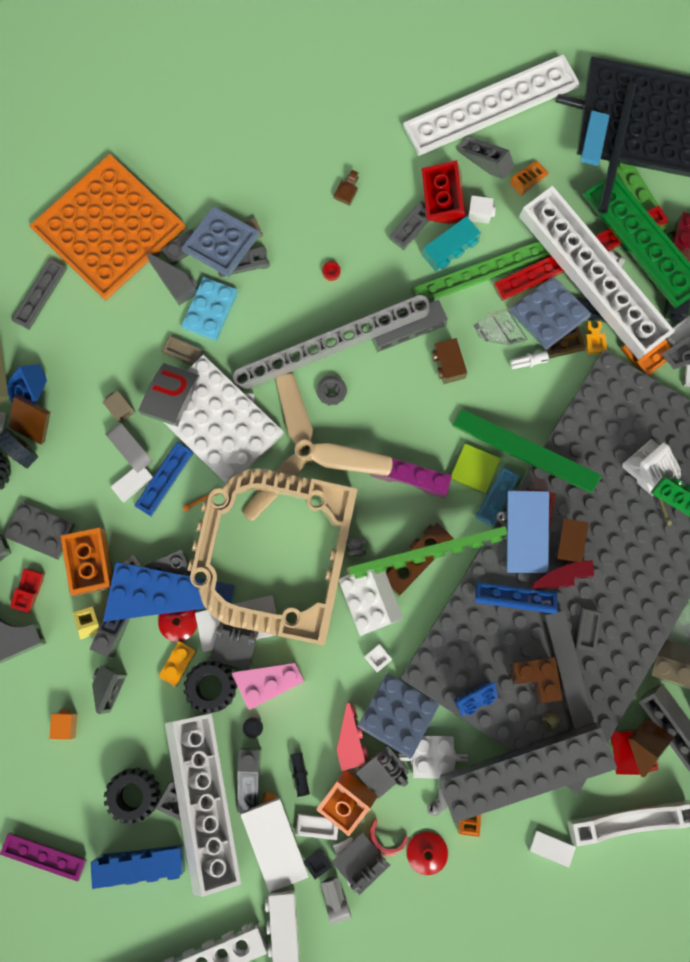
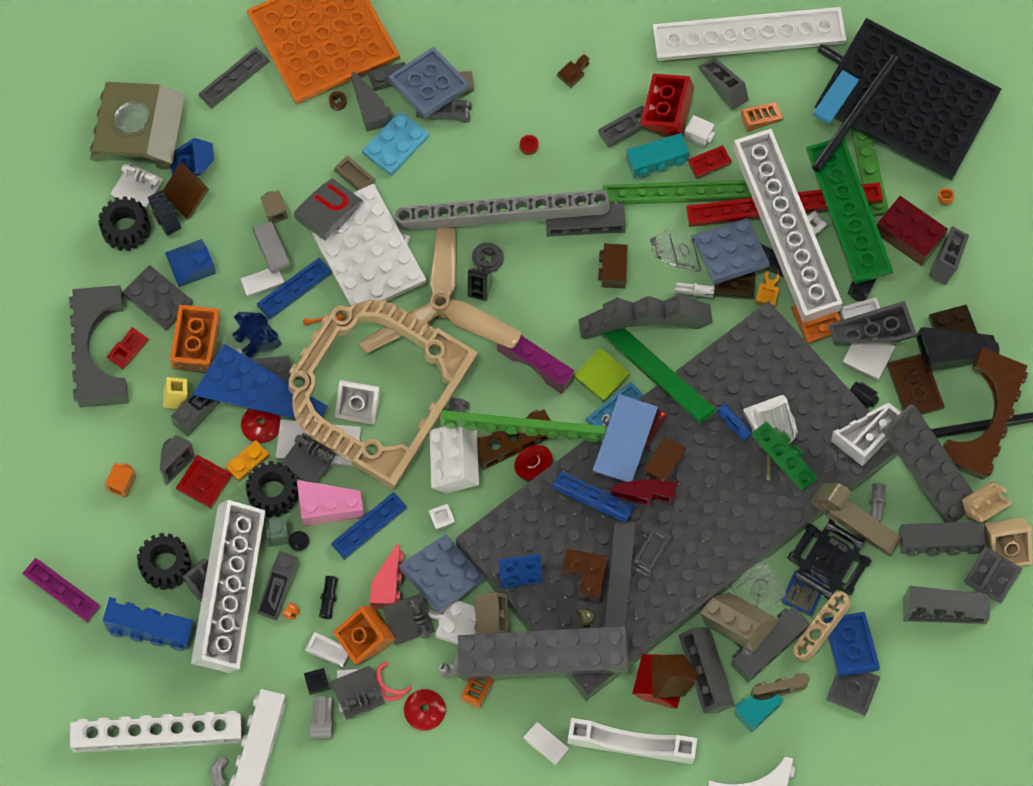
camera: 15 degrees right, 10 degrees down
(58, 486) = (190, 262): none -> blue slope
(143, 535) = (257, 330): none -> clear blue plate
(143, 698) = (204, 481): none -> red tile
(146, 289) = (334, 96): none -> reddish brown bush
(229, 727) = (277, 532): none -> sand green brick
(261, 573) = (357, 402): none -> white slope
(274, 844) = (282, 649): white tile -> none
(312, 689) = (368, 526): none -> blue tile
(334, 418) = (479, 283): none -> black slope
(436, 573) = (532, 461): none -> red dish
(461, 746) = (491, 613): none -> dark tan brick
(499, 234) = (709, 161): none -> red plate
(499, 398) = (646, 311): none -> dark grey arch
(619, 479) = (734, 422): none -> blue pin

